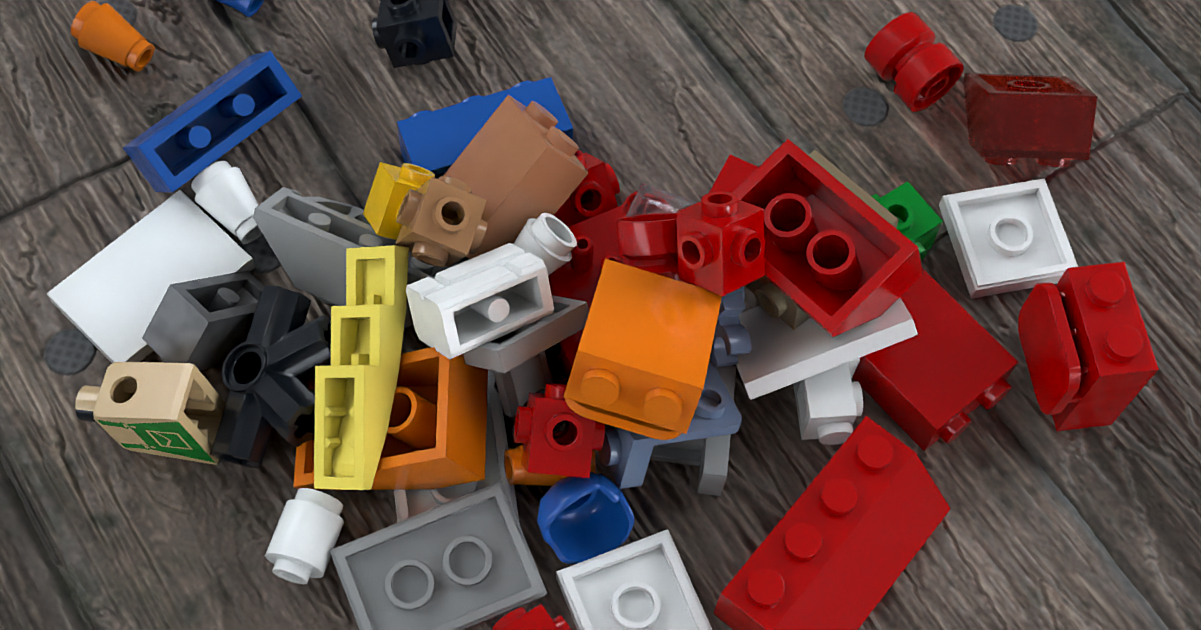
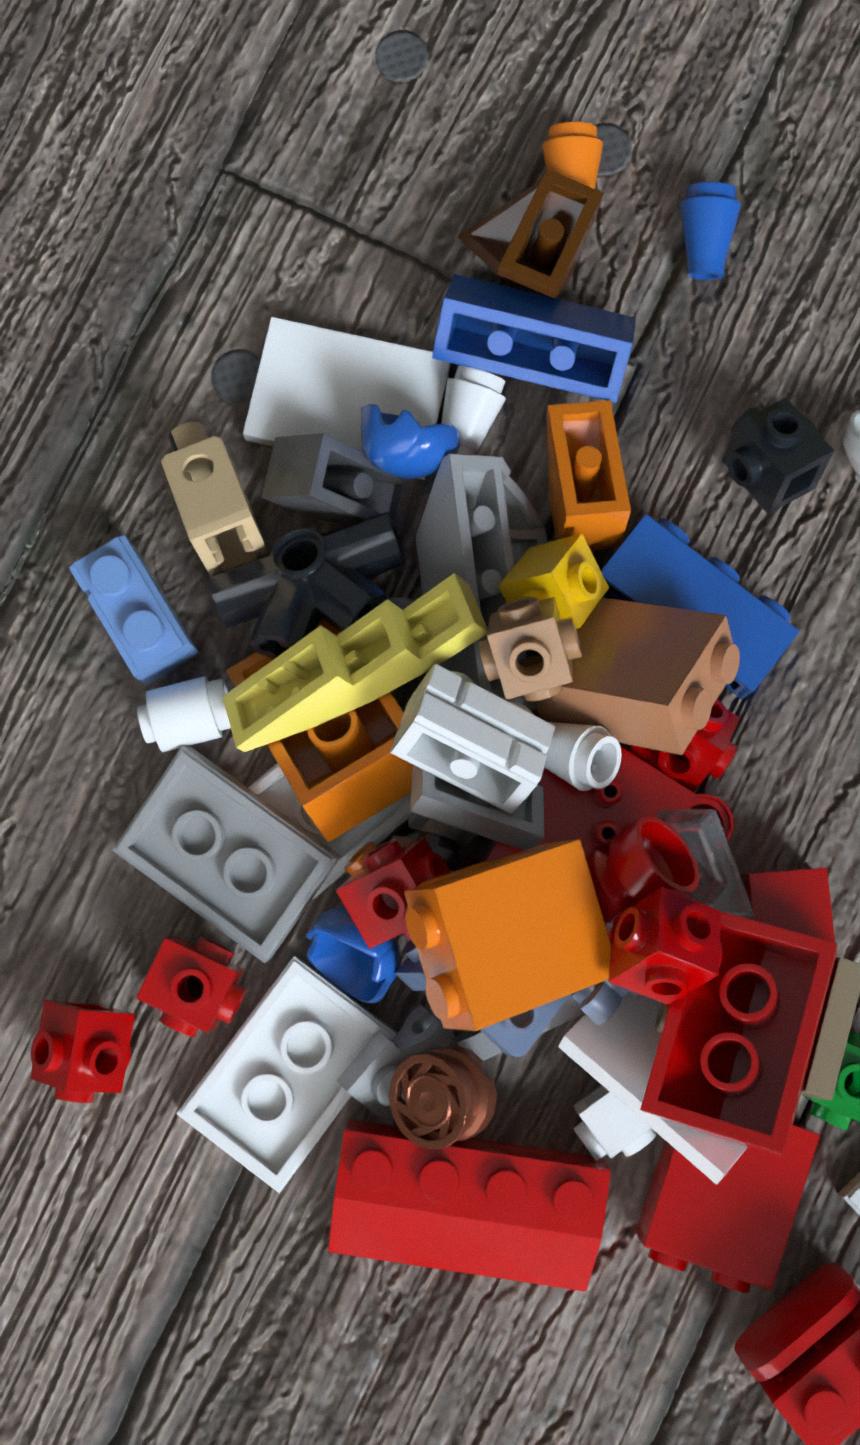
camera: 65 degrees right, 20 degrees up
(137, 78) = (537, 233): none -> reddish brown slope
(193, 525) = (134, 610): none -> medium blue brick
(224, 242) = (404, 447): none -> blue hair
(337, 145) = (586, 474): none -> orange slope
(689, 546) = (371, 1071): none -> light grey plate
(738, 503) = (443, 1096): none -> copper wheel

